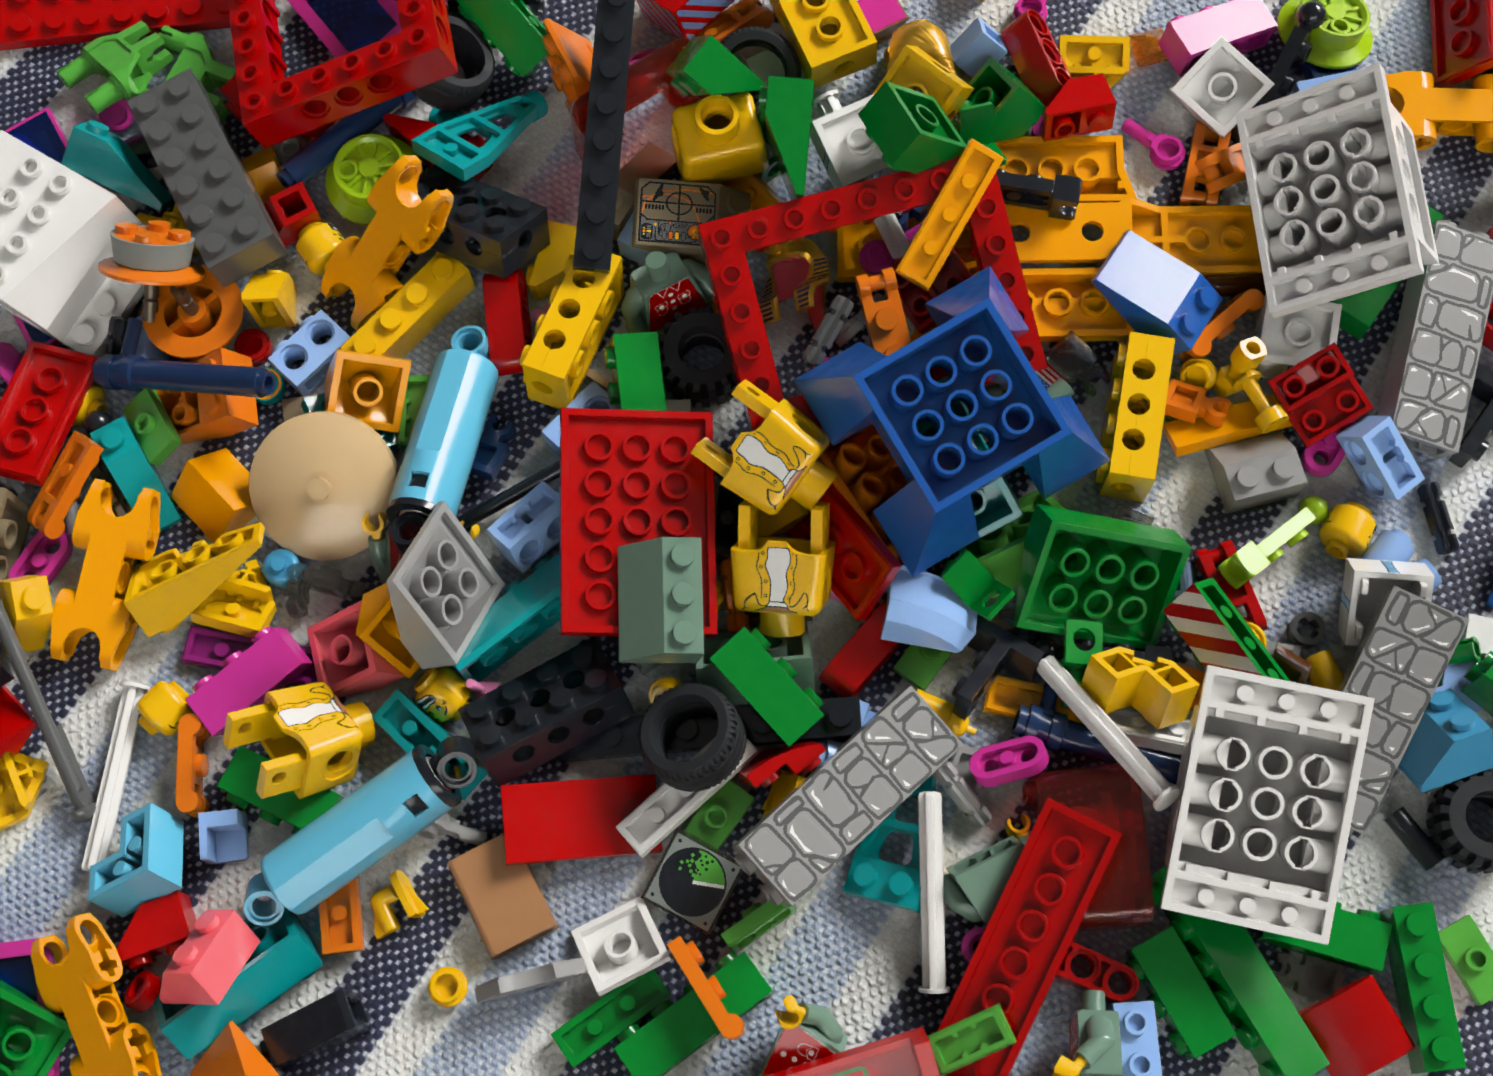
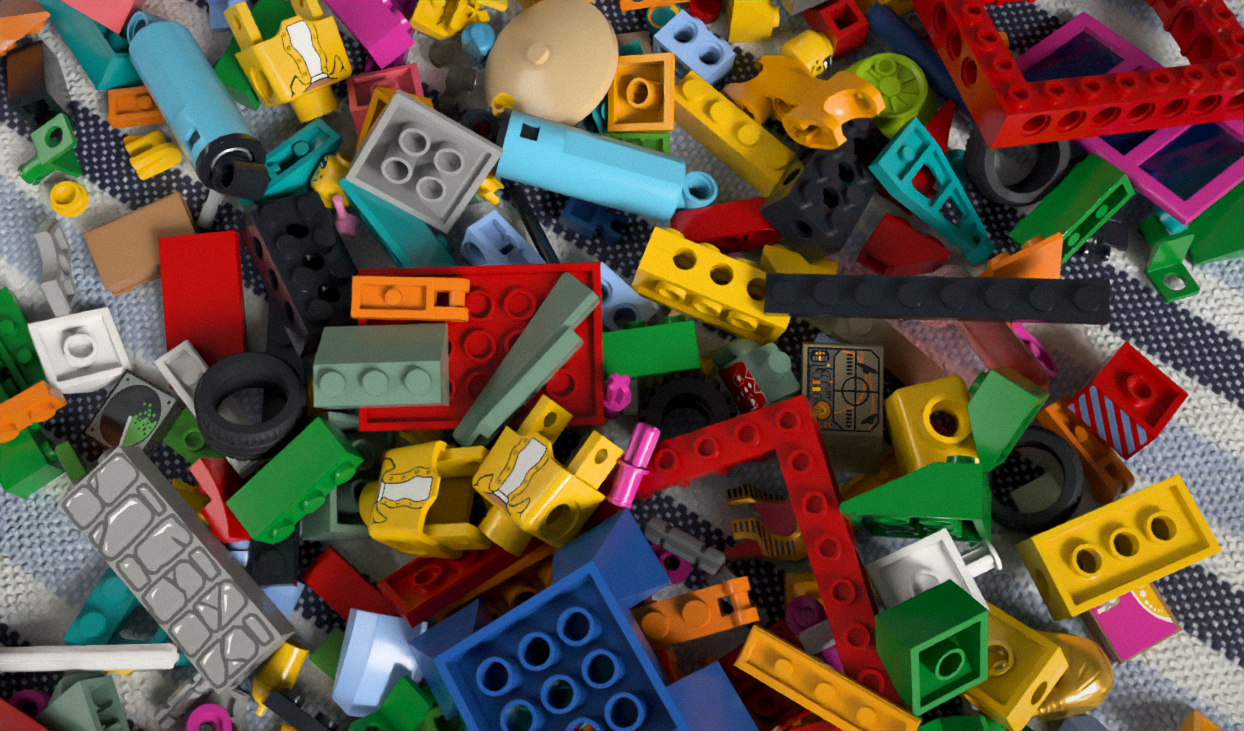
camera: 85 degrees right, 0 degrees up
(399, 1003) = (51, 153): none -> green bracket
(532, 169) = (901, 250): none -> red slope
(595, 578) = (408, 298): none -> orange plate
(657, 469) = (530, 363): none -> sand green wedge
(680, 398) = (616, 395): none -> dark pink axle
(757, 372) = (633, 465): none -> dark pink axle

